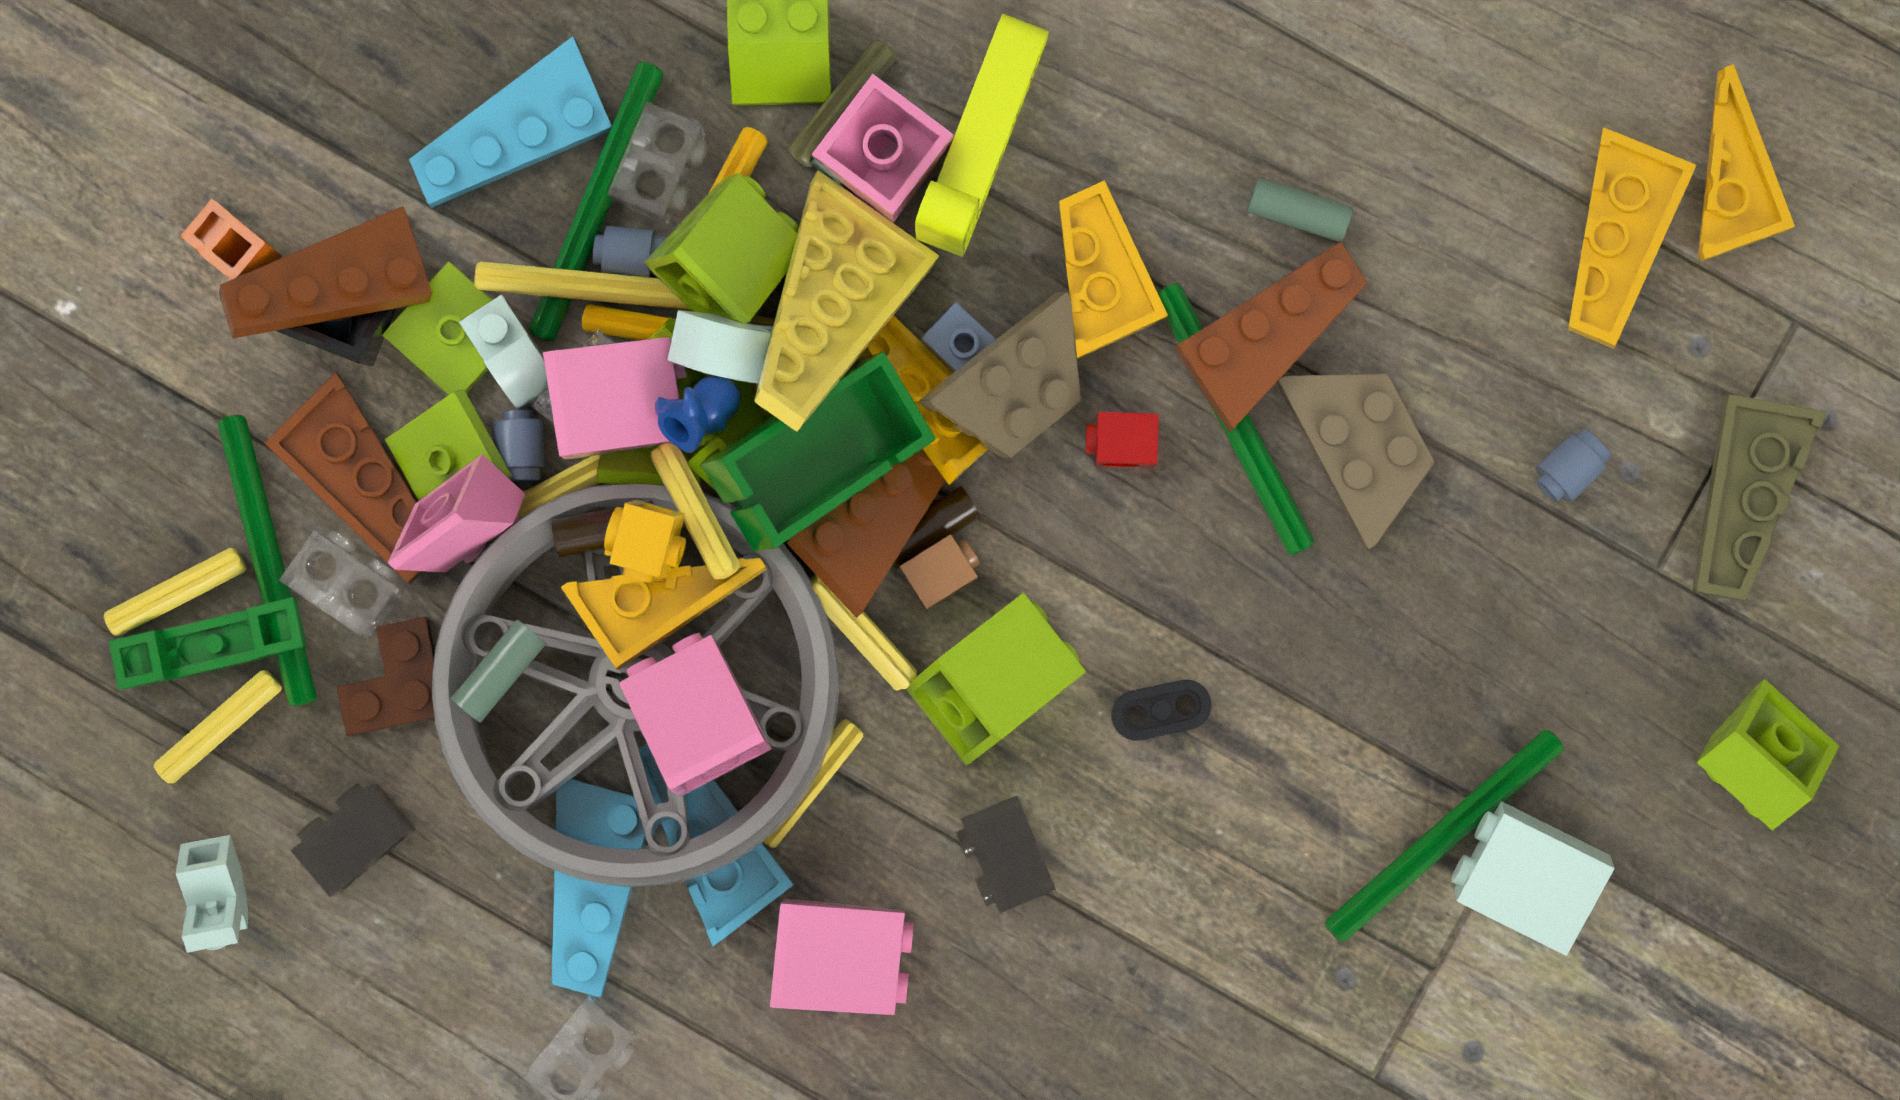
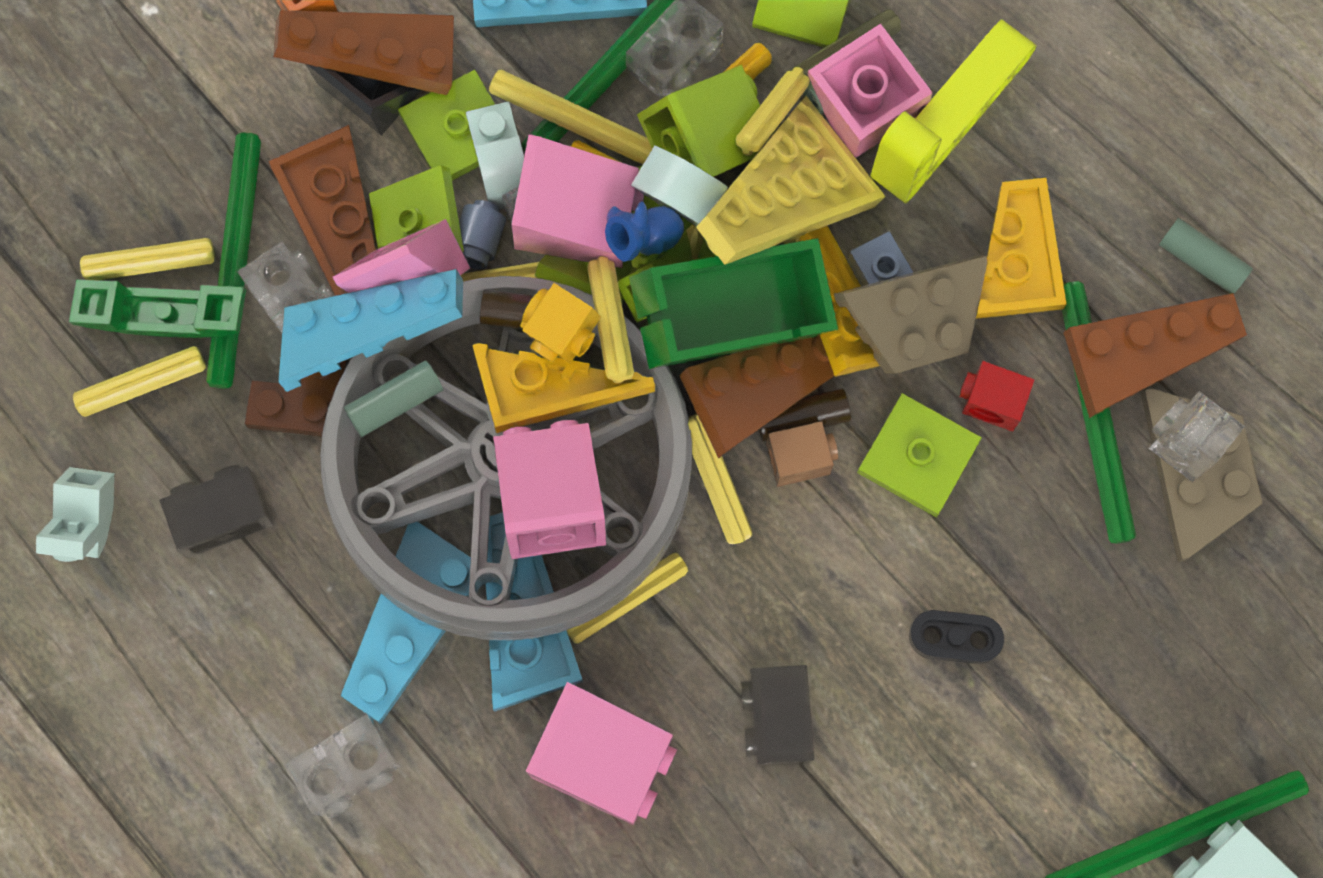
camera: 20 degrees right, 10 degrees down
(434, 600) = (342, 326): none -> medium azure wing
(625, 249) = (622, 105): sand blue brick -> none
(788, 212) = (772, 111): none -> light yellow axle
(995, 678) = (818, 559): lime slope -> none
(1064, 528) = (919, 455): none -> lime plate
(1340, 425) = (1194, 435): none -> clear brick

